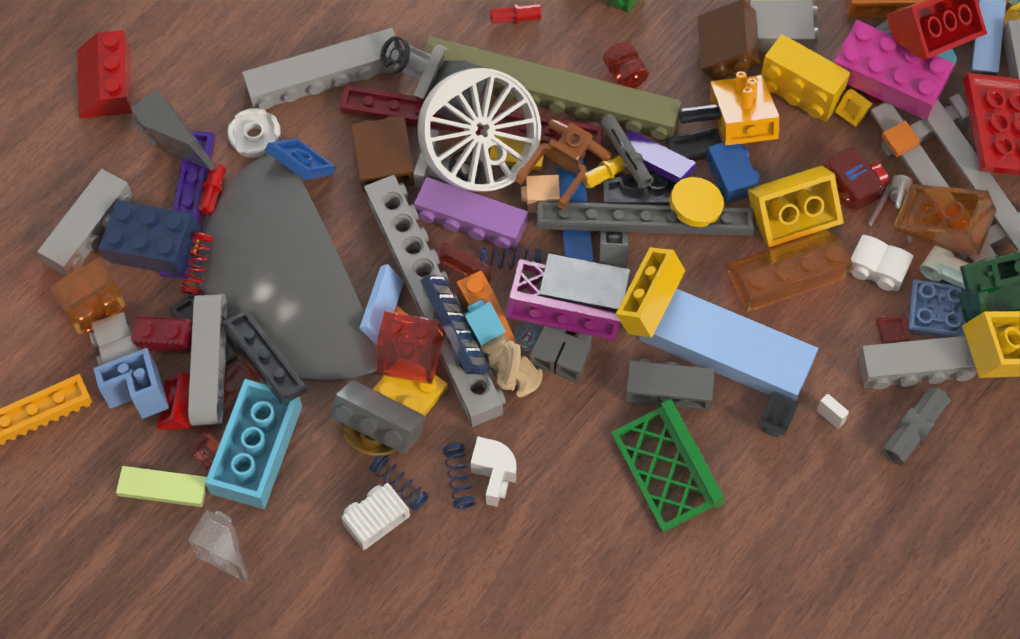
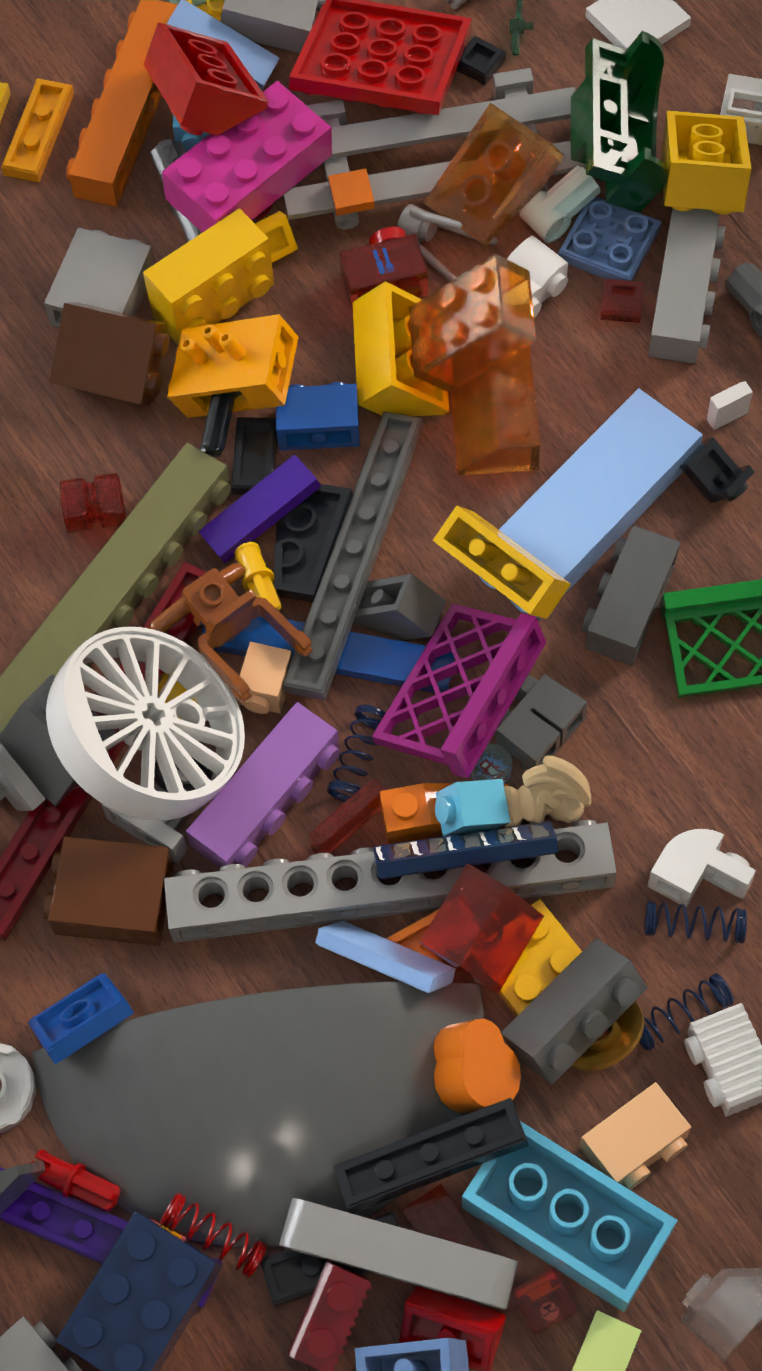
camera: 70 degrees left, 0 degrees up
(312, 473) = (637, 1137): none -> light nougat brick
(326, 370) = (474, 1066): none -> orange piece
(584, 282) = (451, 652): tile -> none
(639, 171) = (293, 531): dark grey pin -> none
(696, 201) = (358, 472): yellow tile -> none
(821, 230) = (472, 323): none -> clear orange brick

